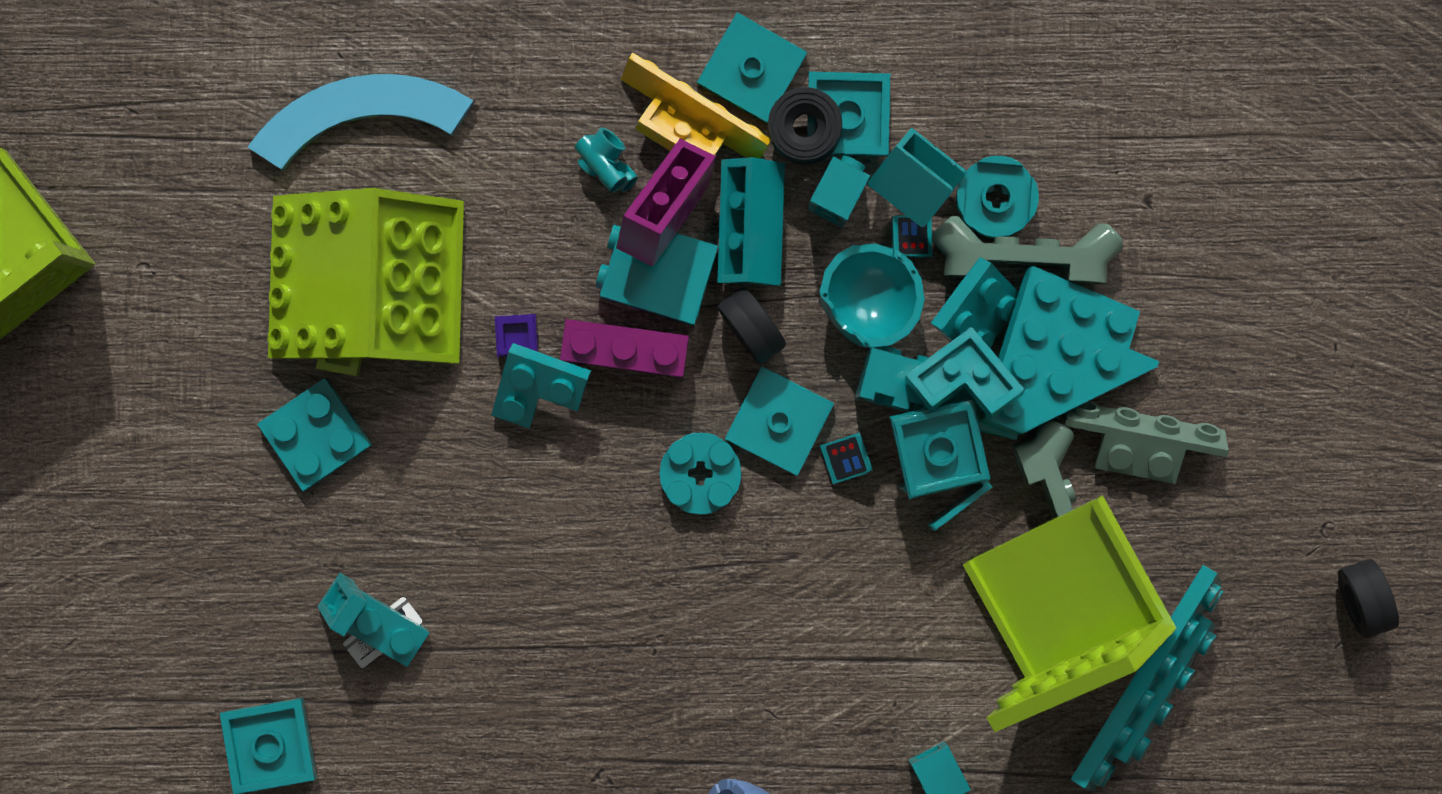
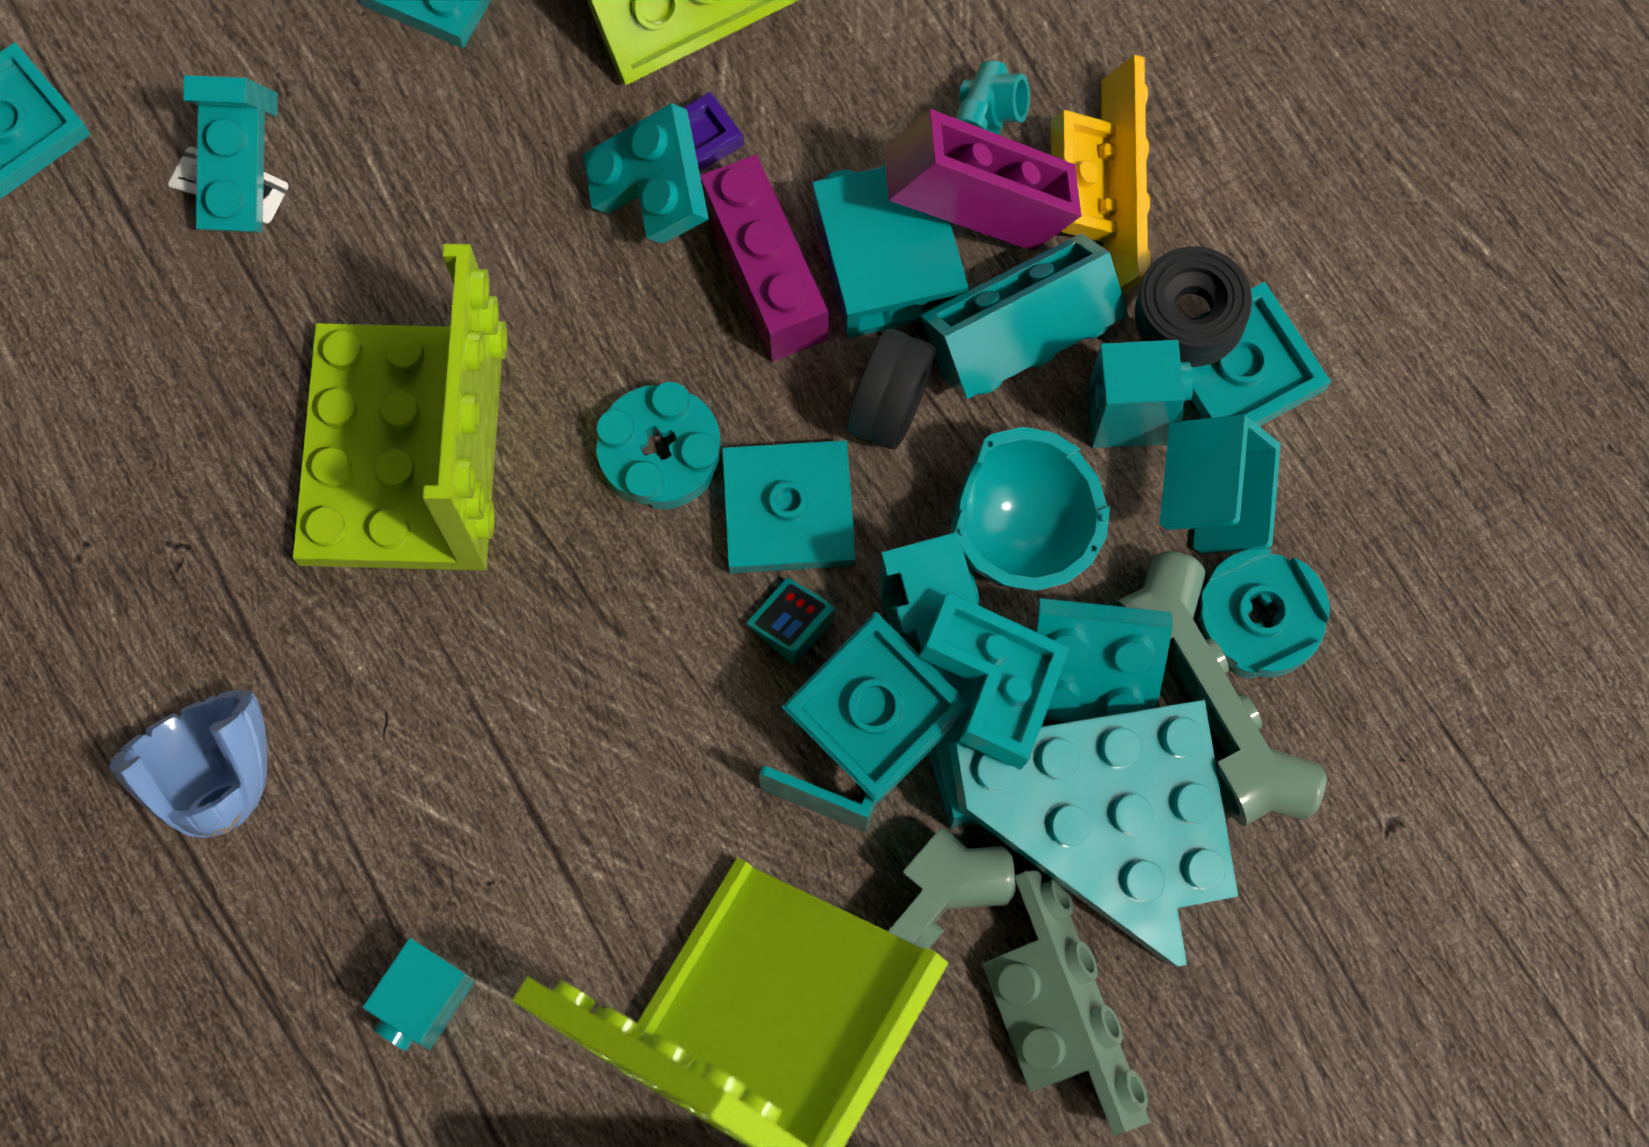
camera: 65 degrees right, 15 degrees down
(613, 618) = (404, 437): none -> lime bracket
(751, 67) = (1226, 209): teal plate -> none
(910, 237) = (1136, 533): slope -> none

